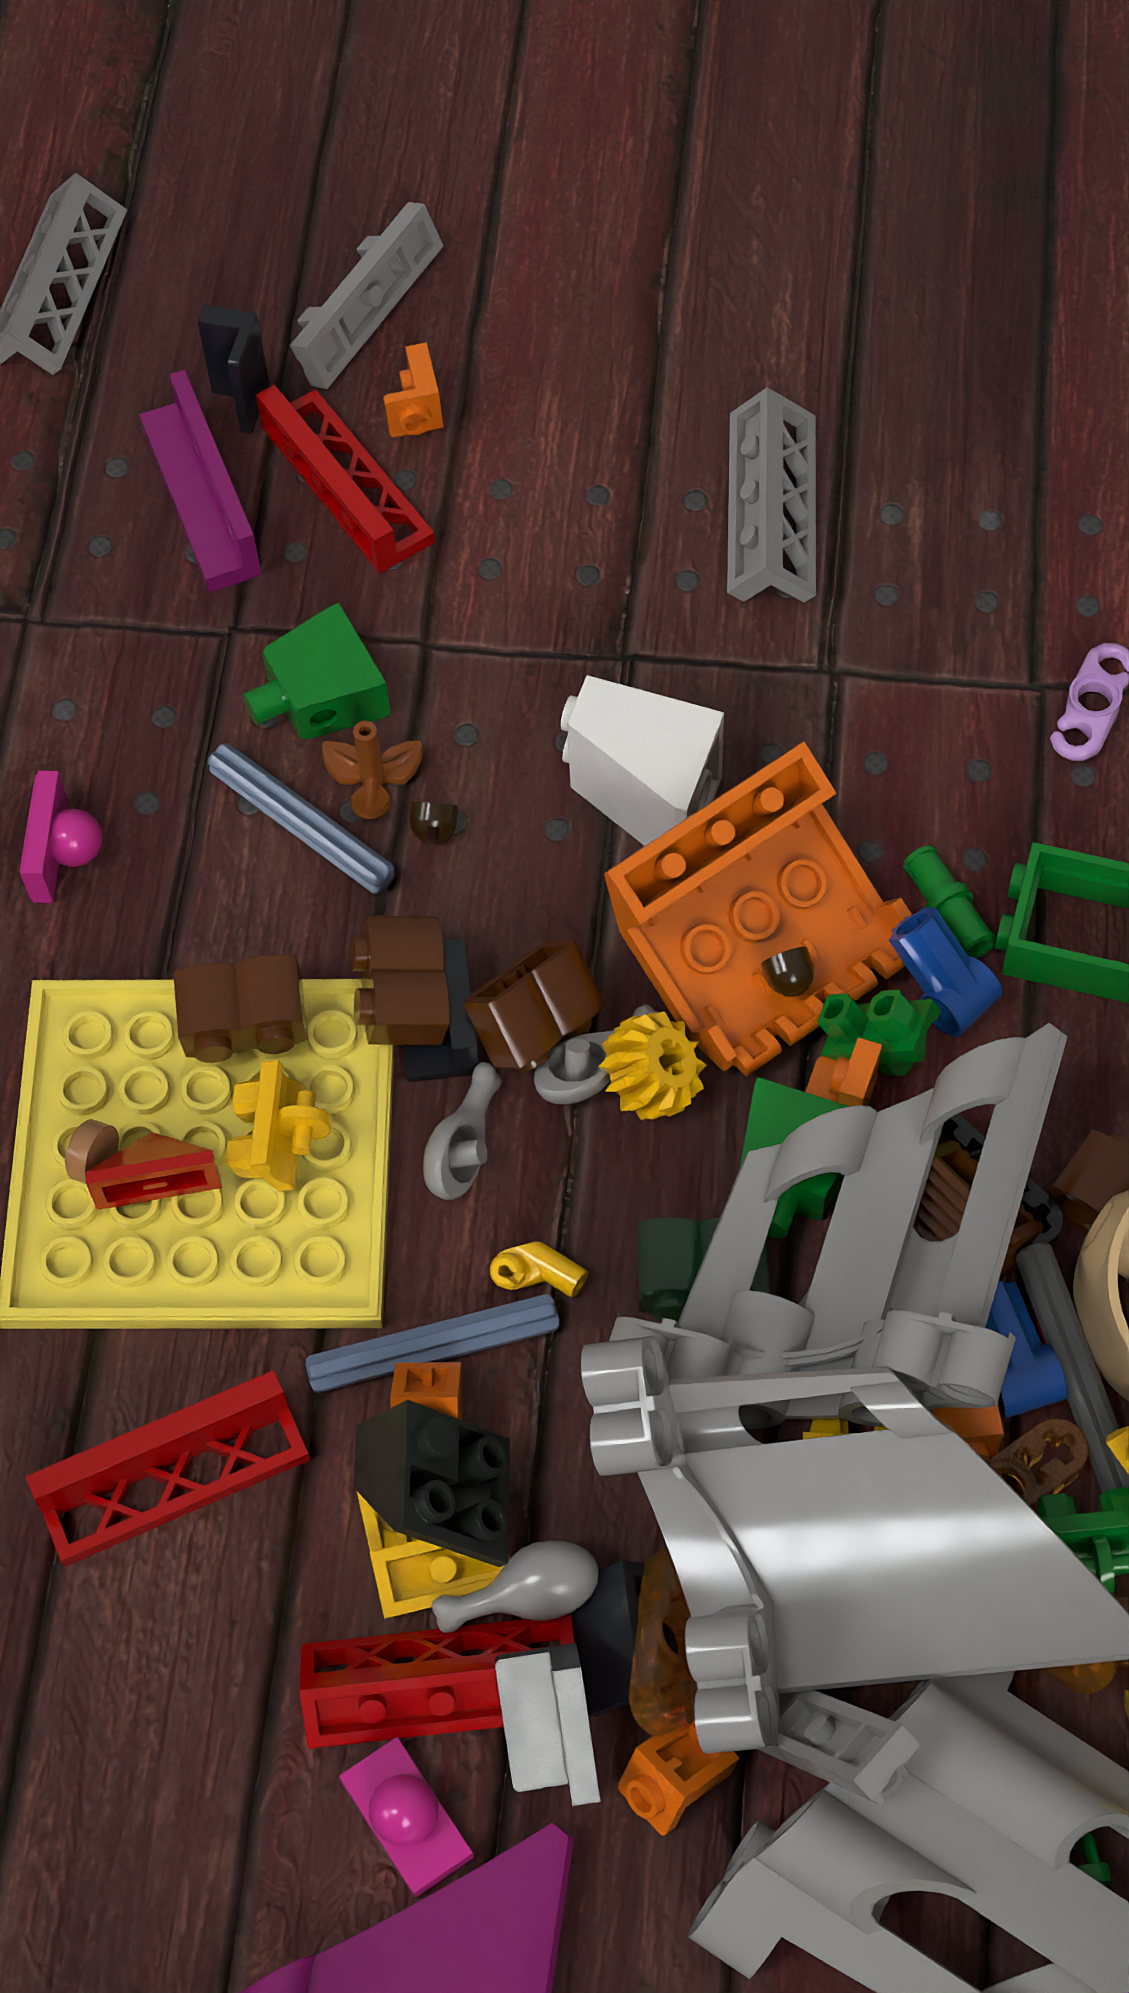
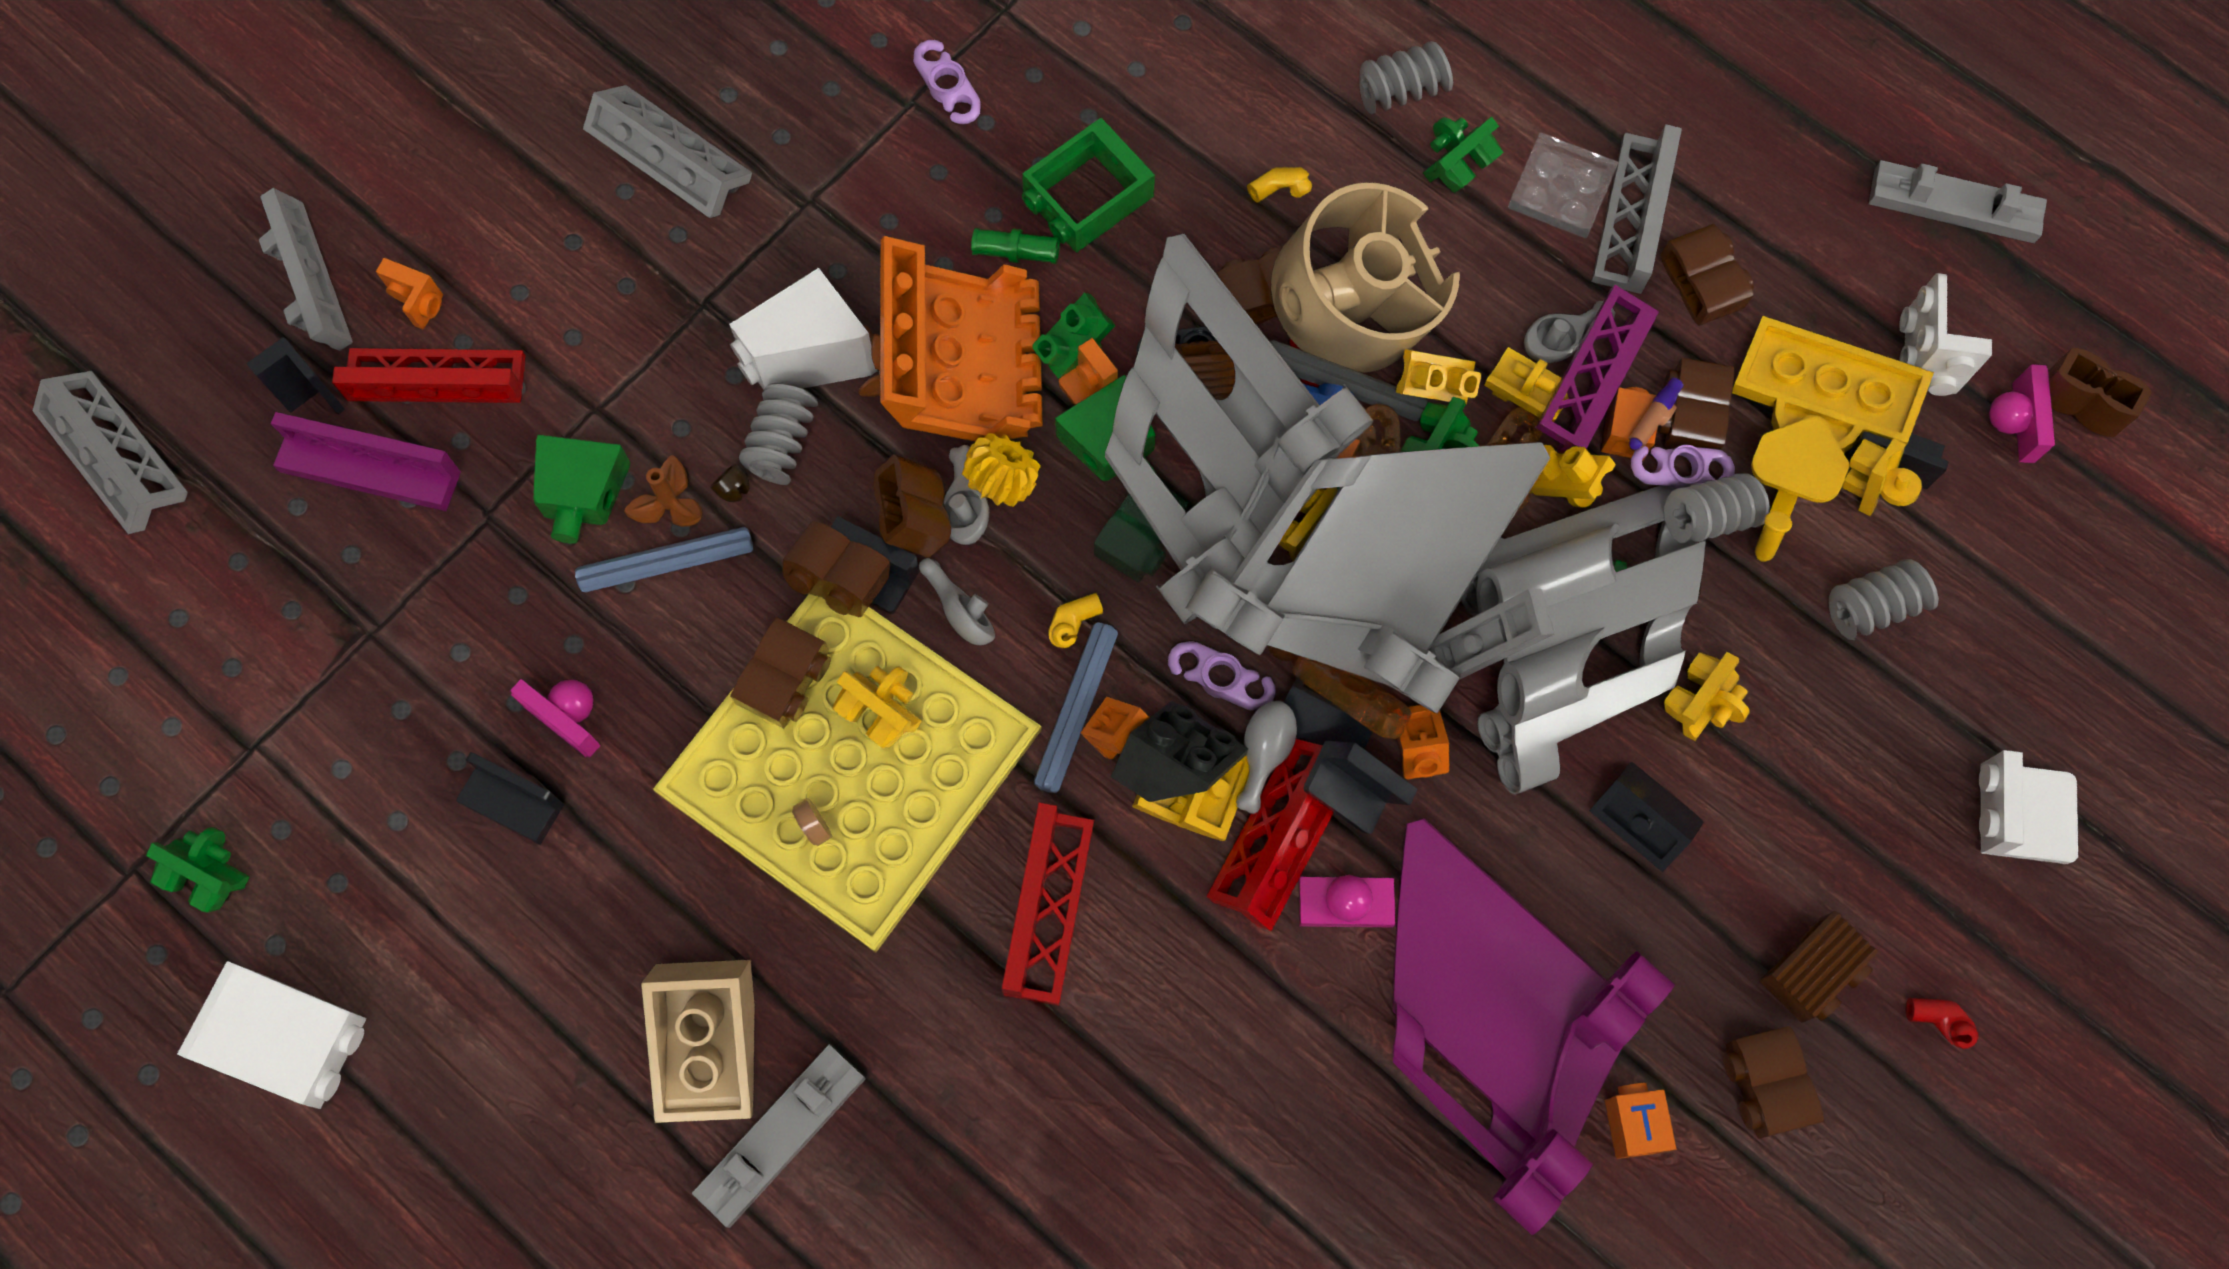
camera: 60 degrees left, 10 degrees up
(152, 1170) = (849, 790): red slope -> none
(522, 819) = (774, 432): none -> light grey piece
(580, 1508) = (1207, 659): none -> lavender piece
(789, 971) = (999, 356): dark brown hinge -> none
(944, 971) = (1060, 276): blue piece -> none

